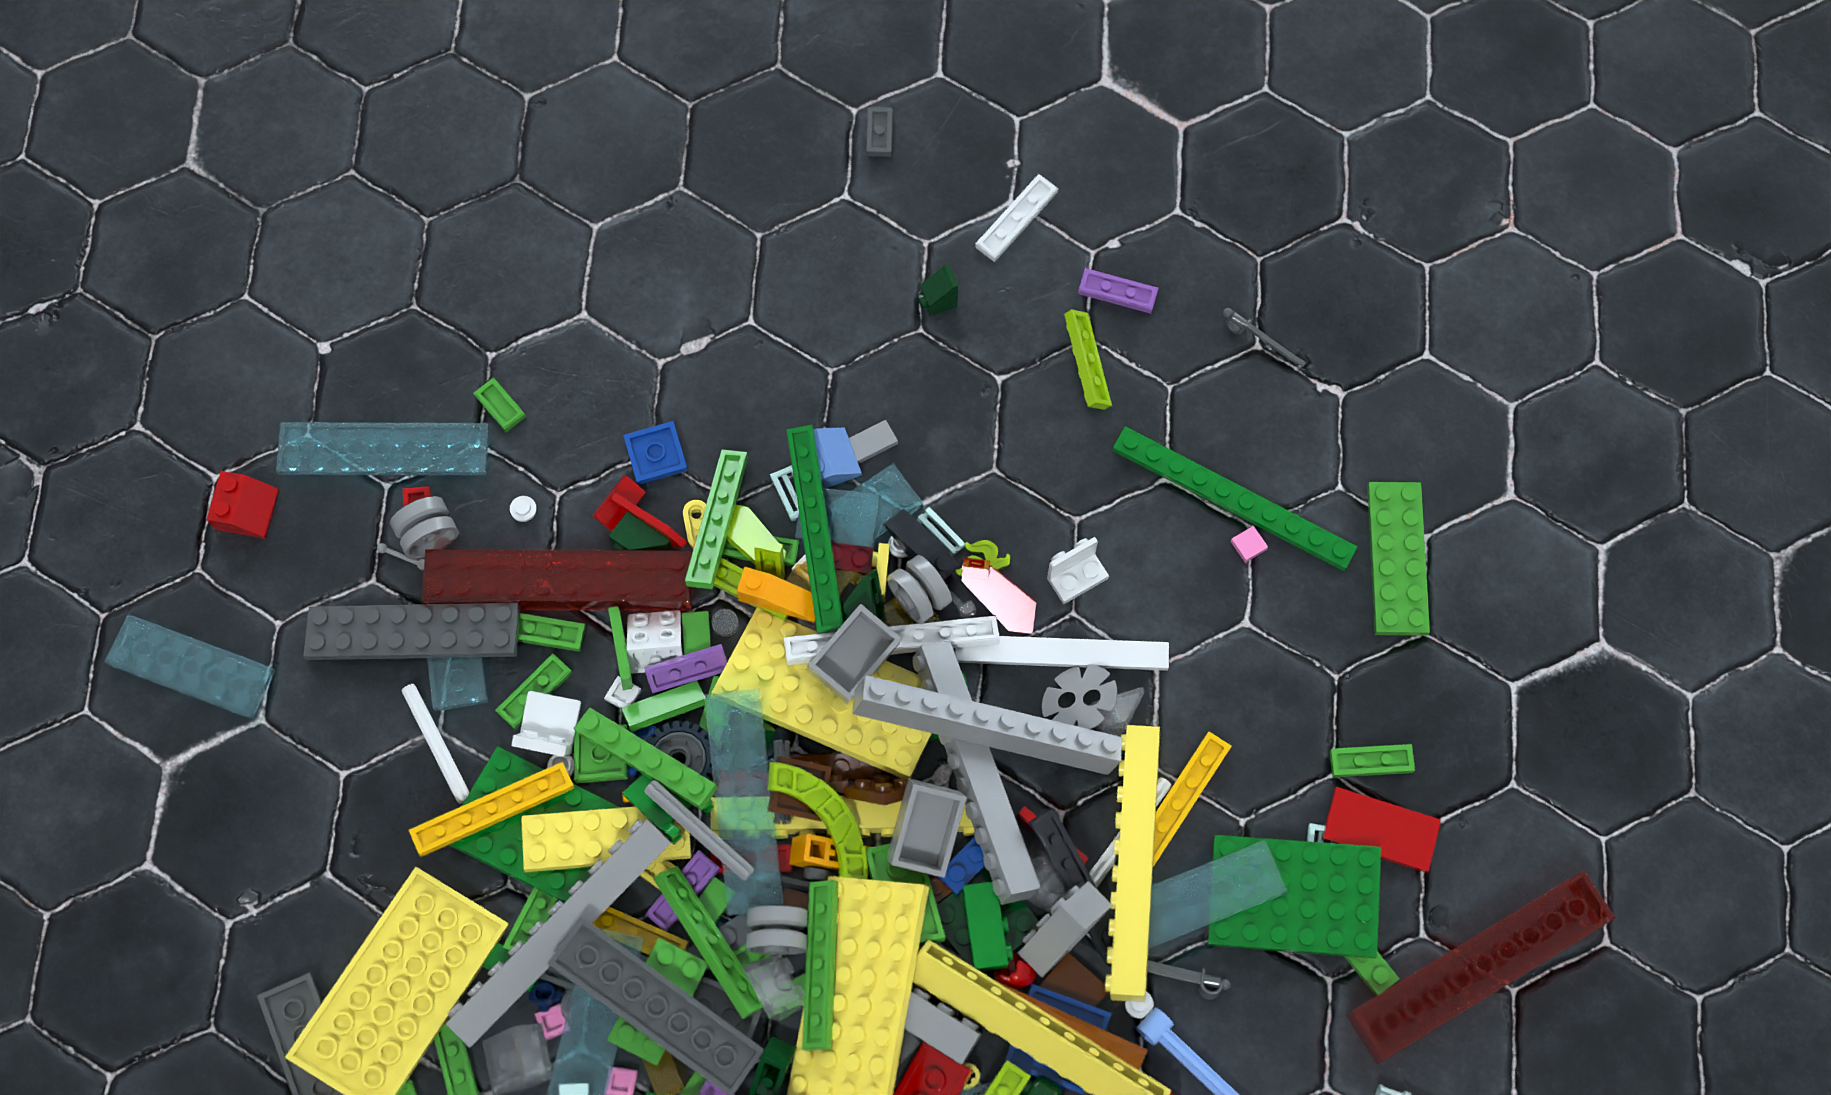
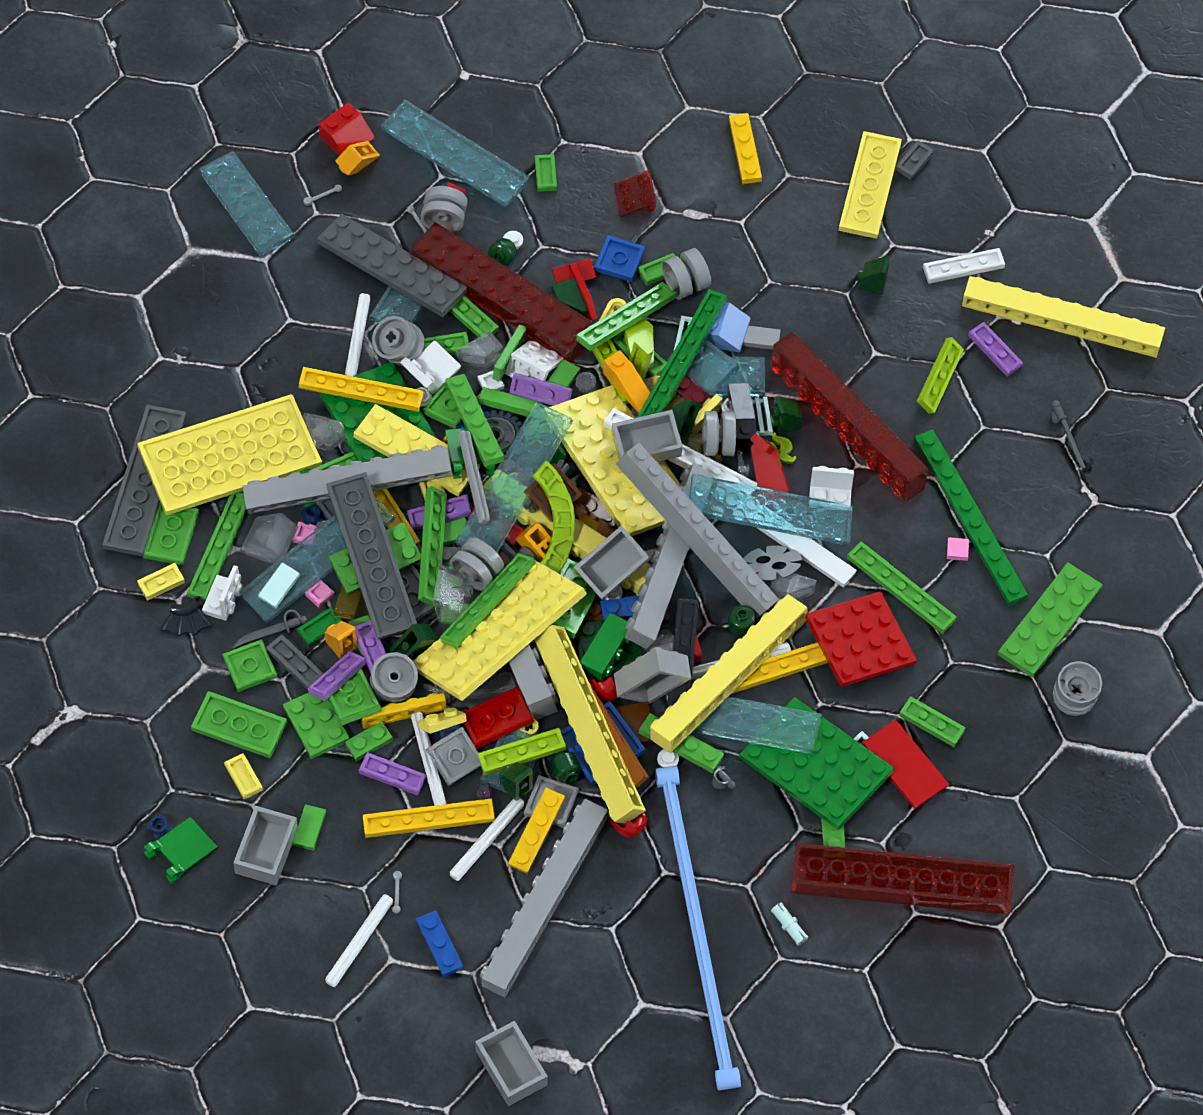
camera: 35 degrees right, 10 degrees down
(258, 616) = (308, 201): none -> light grey hinge
(278, 528) = (356, 157): none -> light orange slope
(484, 884) = (325, 431): none -> clear slope
(489, 720) = (396, 339): none -> light grey wheel
(524, 532) = (503, 251): none -> dark green head
(589, 666) = (481, 352): none -> clear slope
(616, 365) = (635, 193): none -> clear red hinge
(692, 234) = (745, 148): none -> yellow plate
(706, 435) = (652, 271): none -> bright green tile
(743, 424) = (686, 273): none -> light grey wheel
(855, 190) = (870, 185): none -> light yellow plate
(968, 516) = (786, 415): none -> dark green slope
(1034, 474) = (849, 417): none -> clear red brick
(1036, 640) = (772, 509): none -> clear light blue plate
(1100, 796) = (740, 620): none -> dark green head
(1159, 208) = (1063, 316): none -> light yellow brick
(1160, 976) = (690, 748): none -> bright green plate
(1228, 629) = (901, 587): none -> bright green plate
(1232, 719) = (860, 639): none -> red plate
(1500, 611) = (1080, 678): none -> light grey wheel

